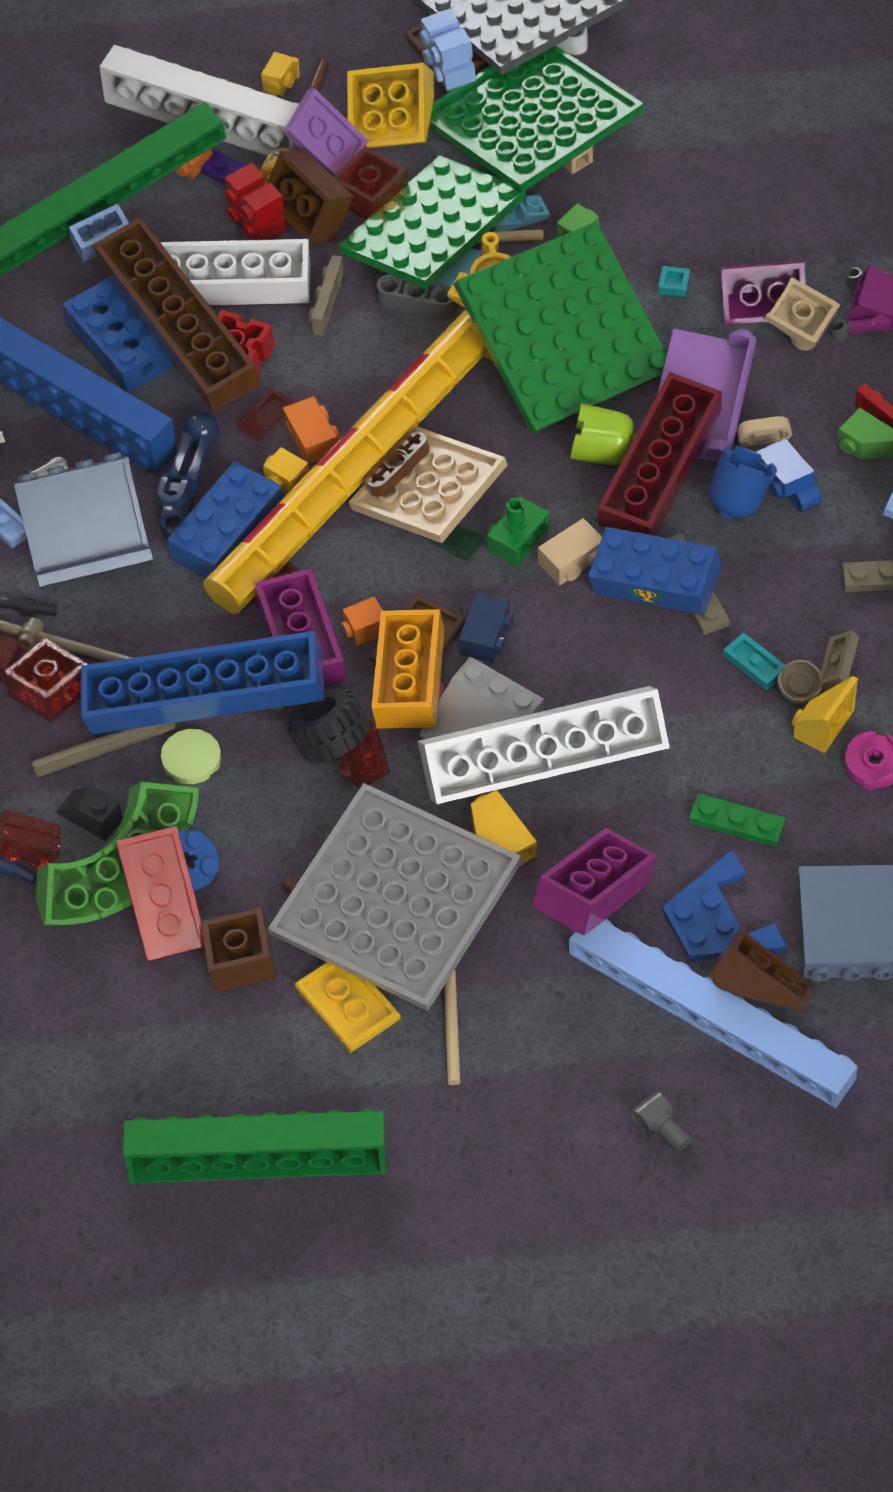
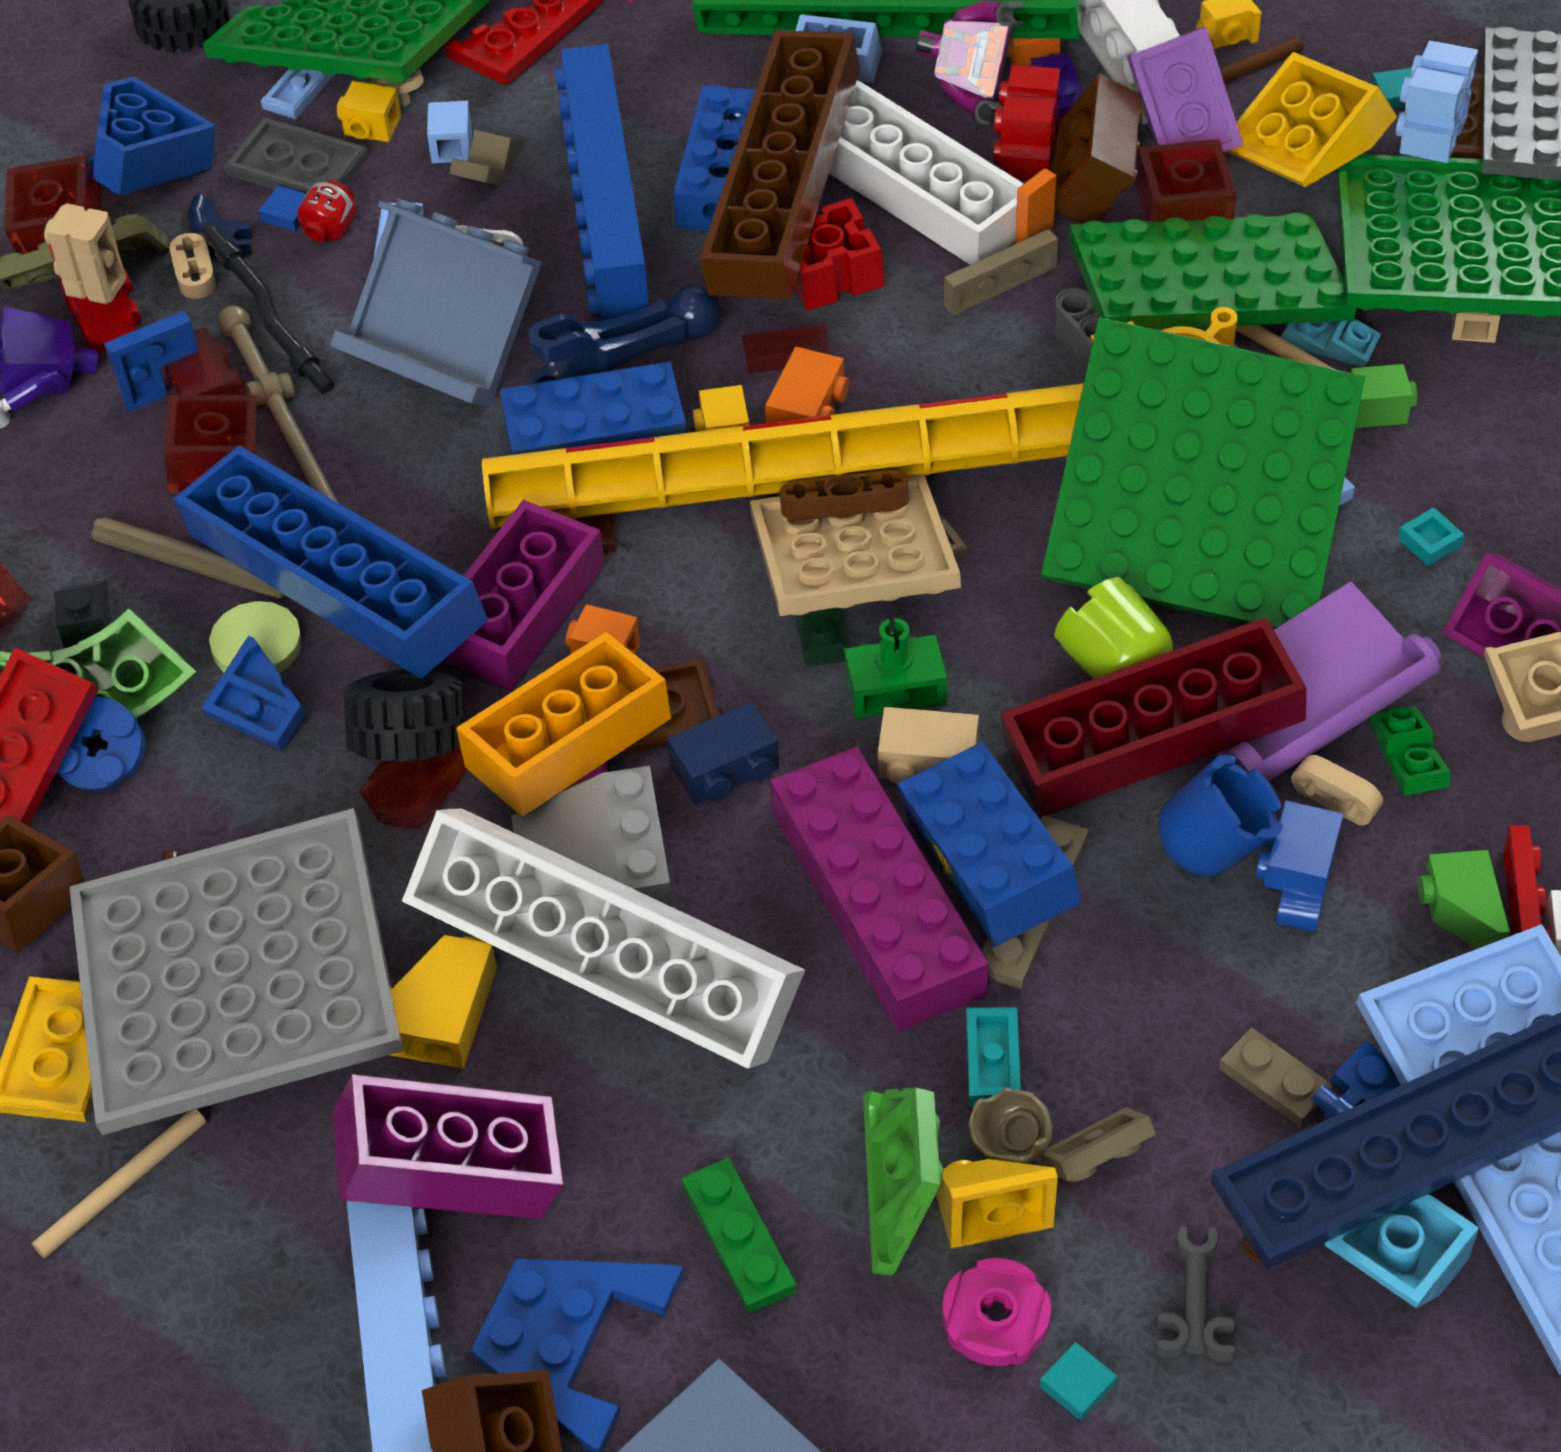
camera: 45 degrees right, 5 degrees down
(182, 185) = (972, 54): none -> torso
(234, 780) = (255, 698): none -> blue wing
(315, 253) = (1035, 205): none -> orange tile
(401, 53) = (1391, 84): none -> teal tile
(625, 629) = (879, 889): none -> magenta brick
(768, 389) = (1409, 750): none -> green slope
(777, 734) = (900, 1169): none -> bright green wing

